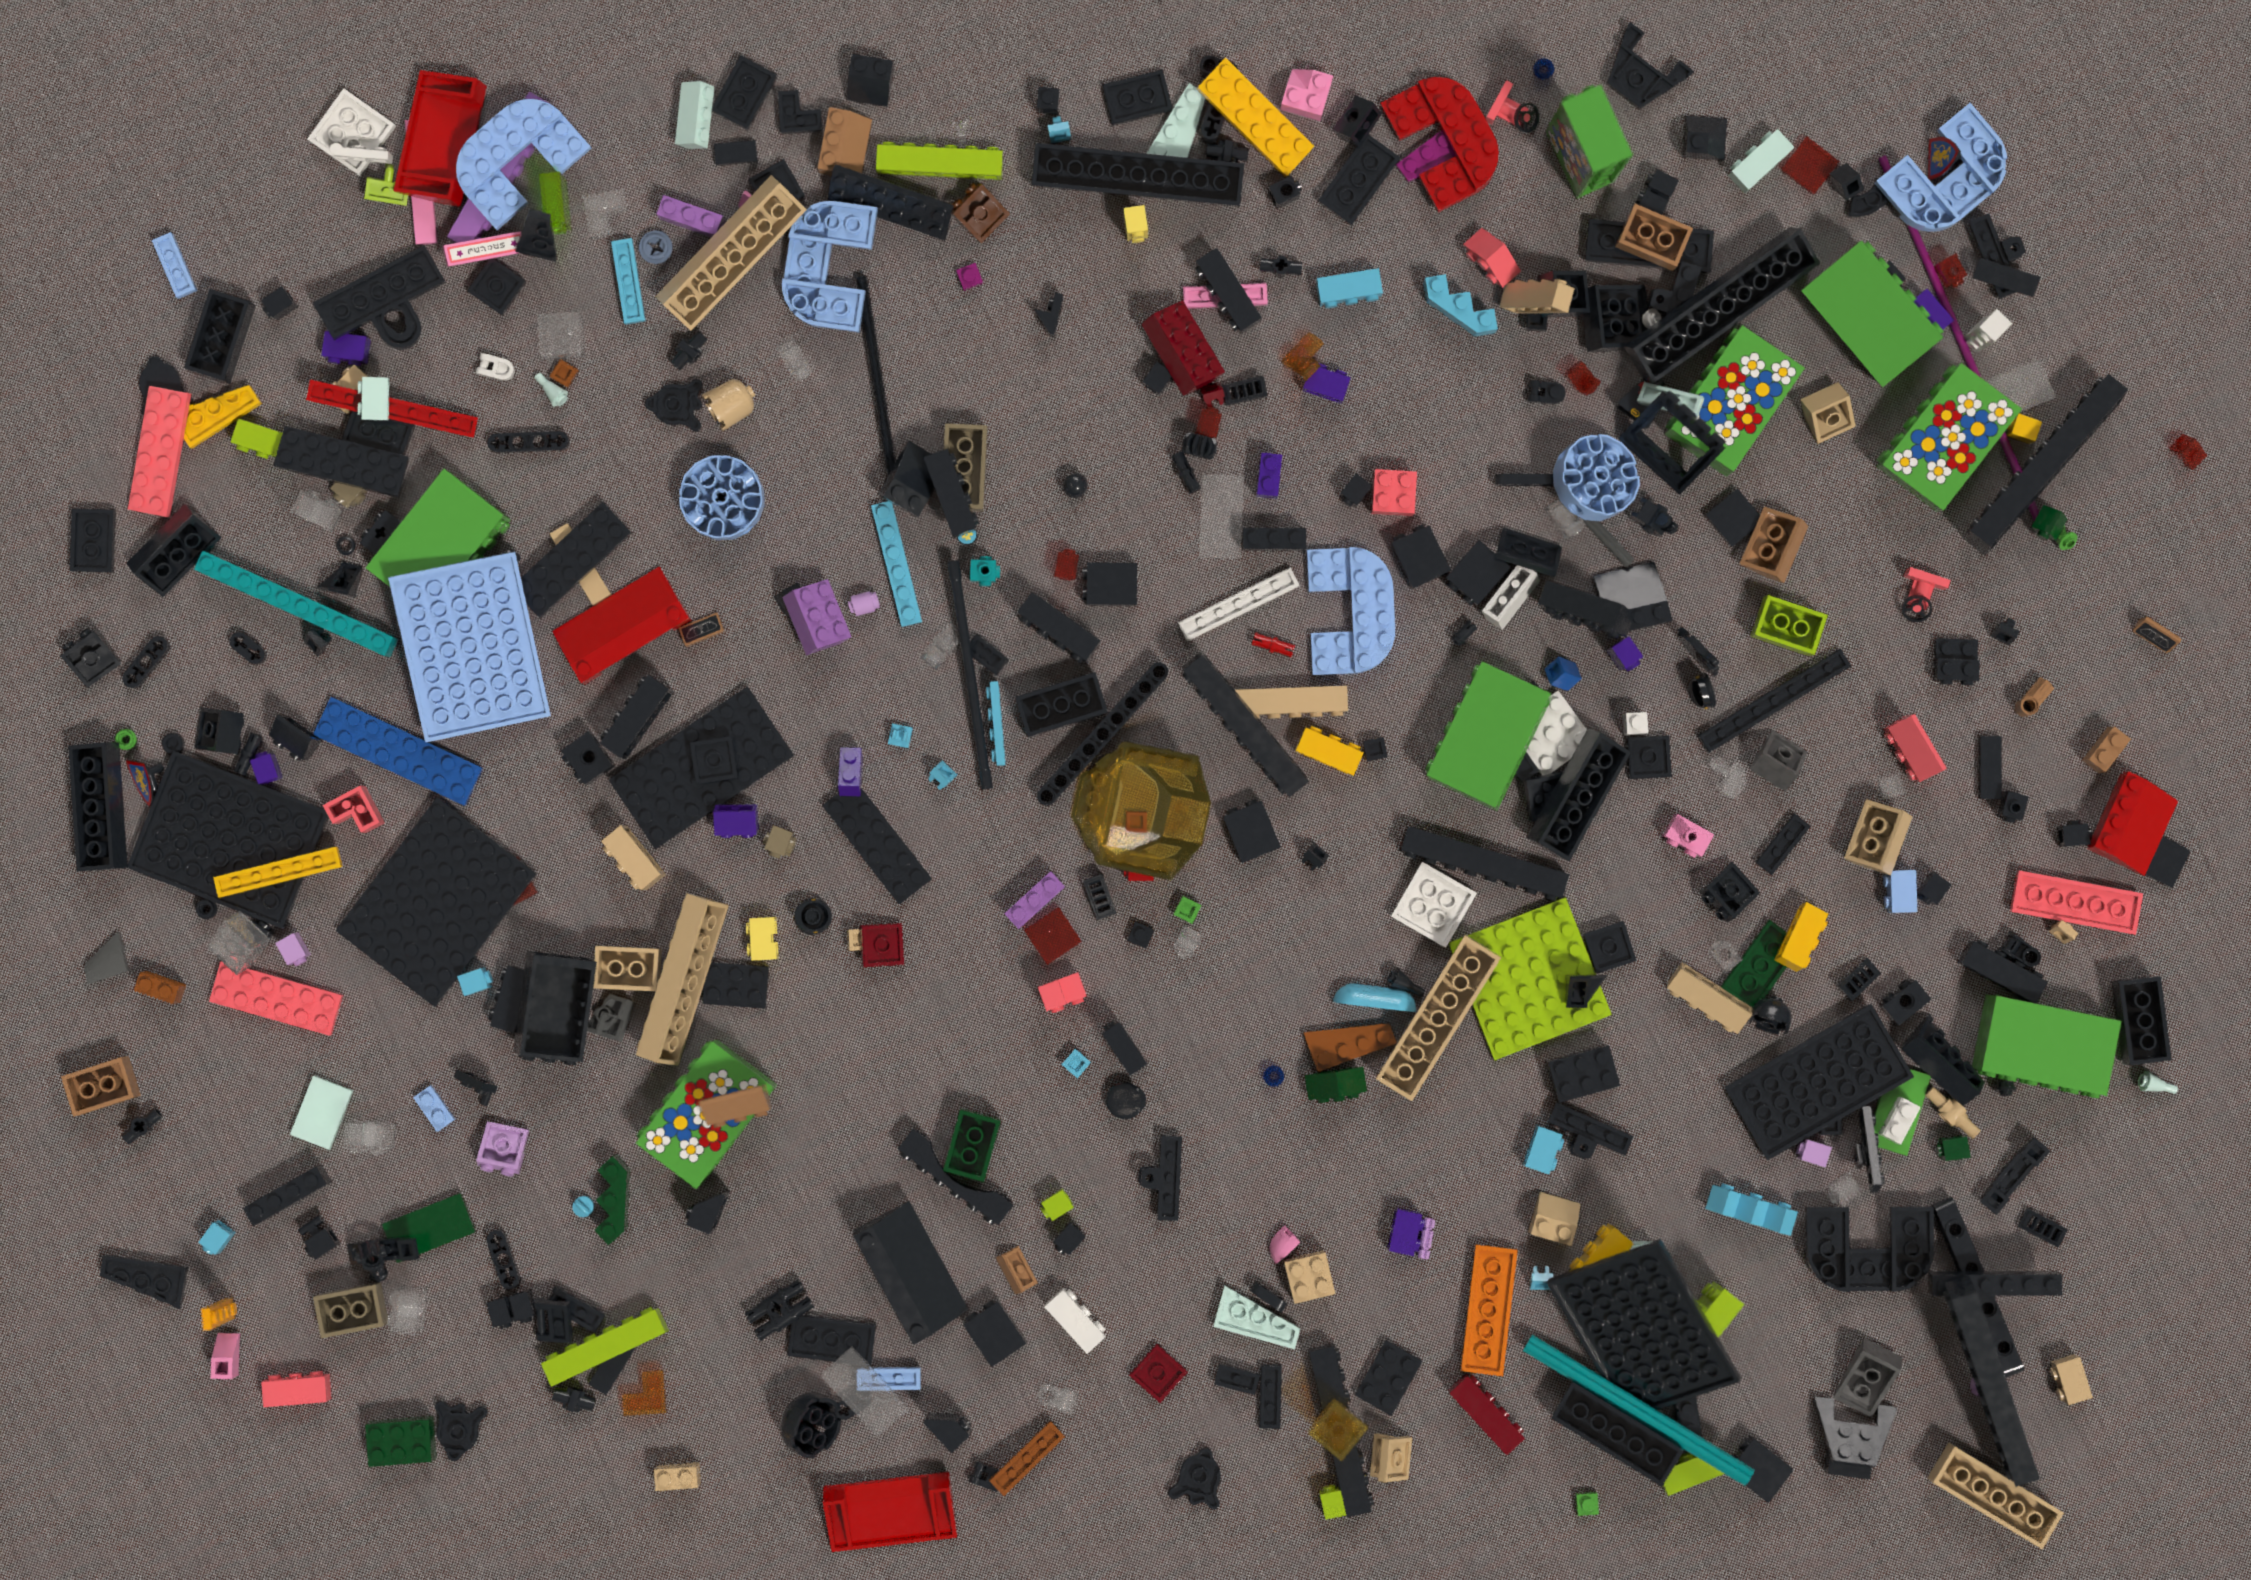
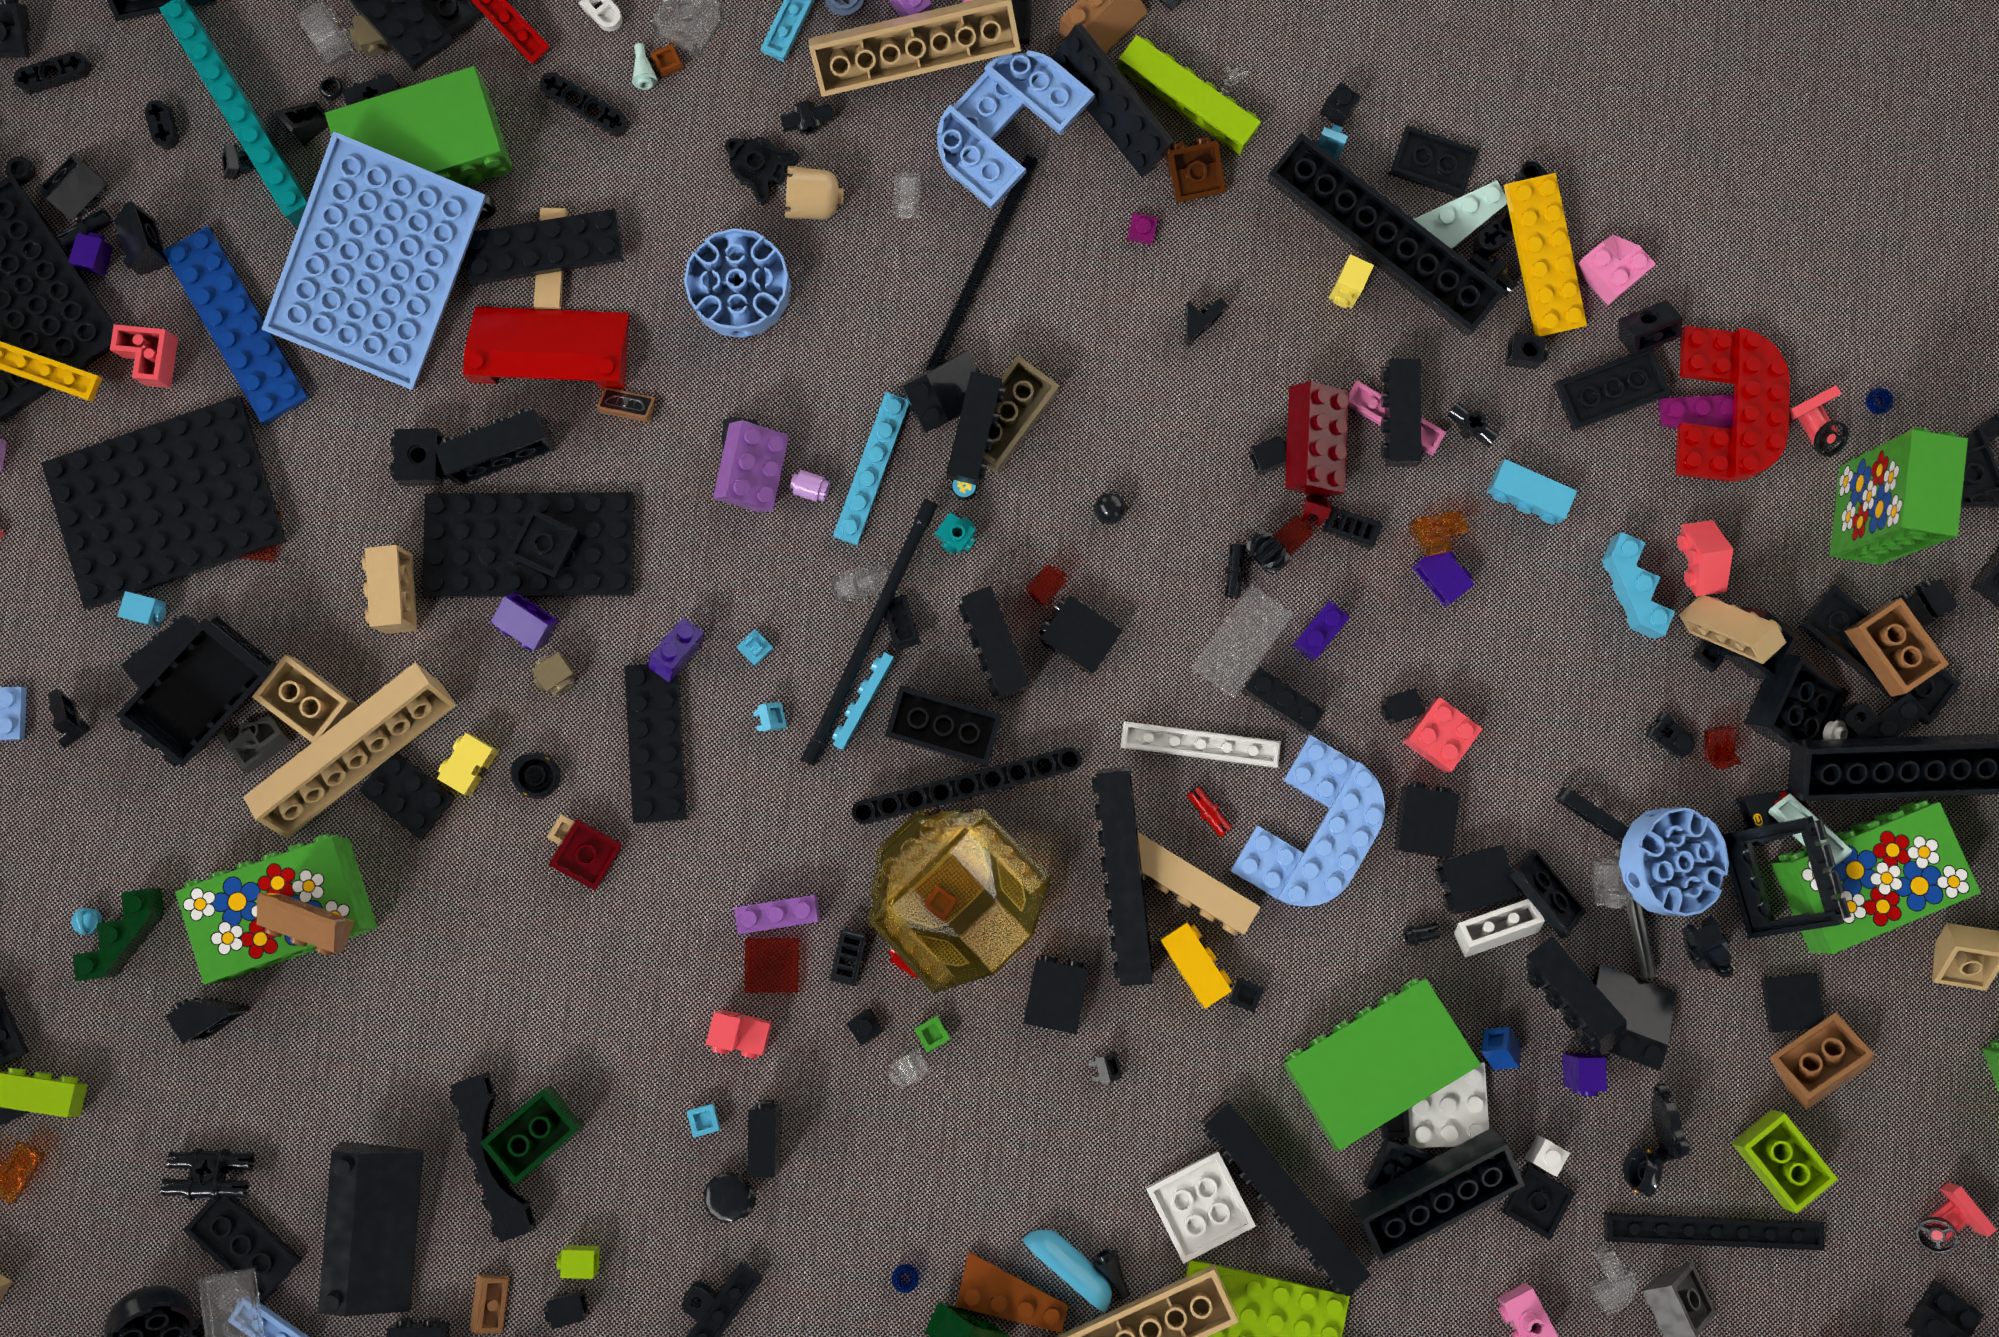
camera: 30 degrees right, 5 degrees down
(502, 1148) = (45, 803): lavender plate -> none

